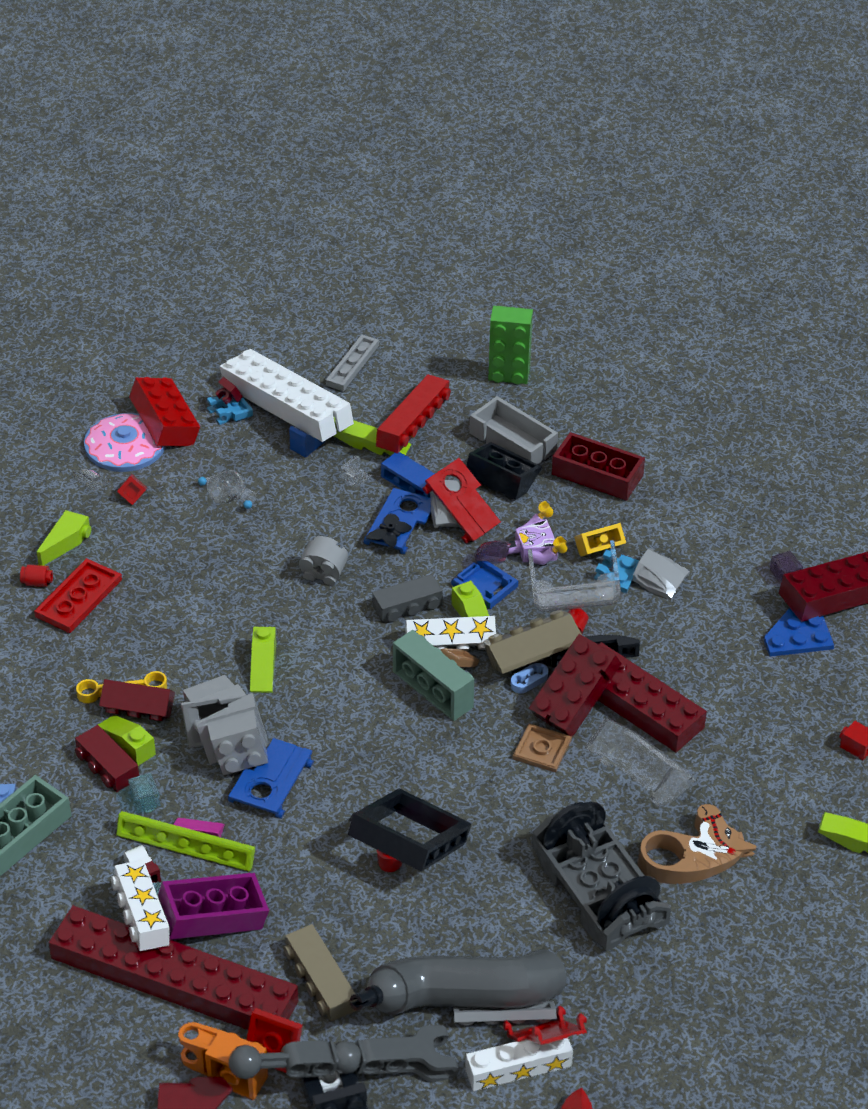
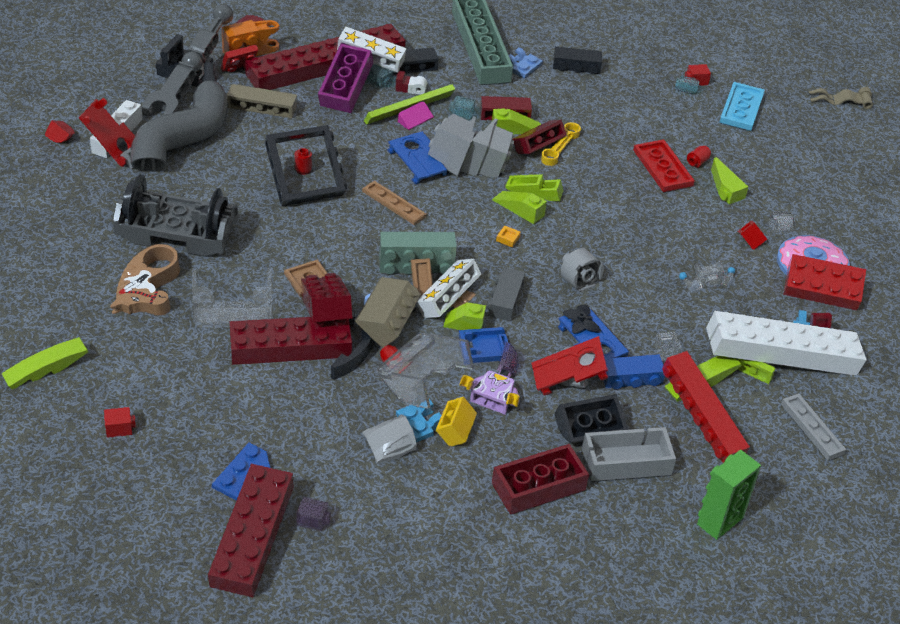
camera: 125 degrees right, 0 degrees up
(89, 890) = (419, 61): none -> black brick
(220, 659) = (545, 189): none -> lime slope
(321, 644) = (508, 236): none -> light orange plate
(362, 758) = (394, 202): none -> medium nougat tile

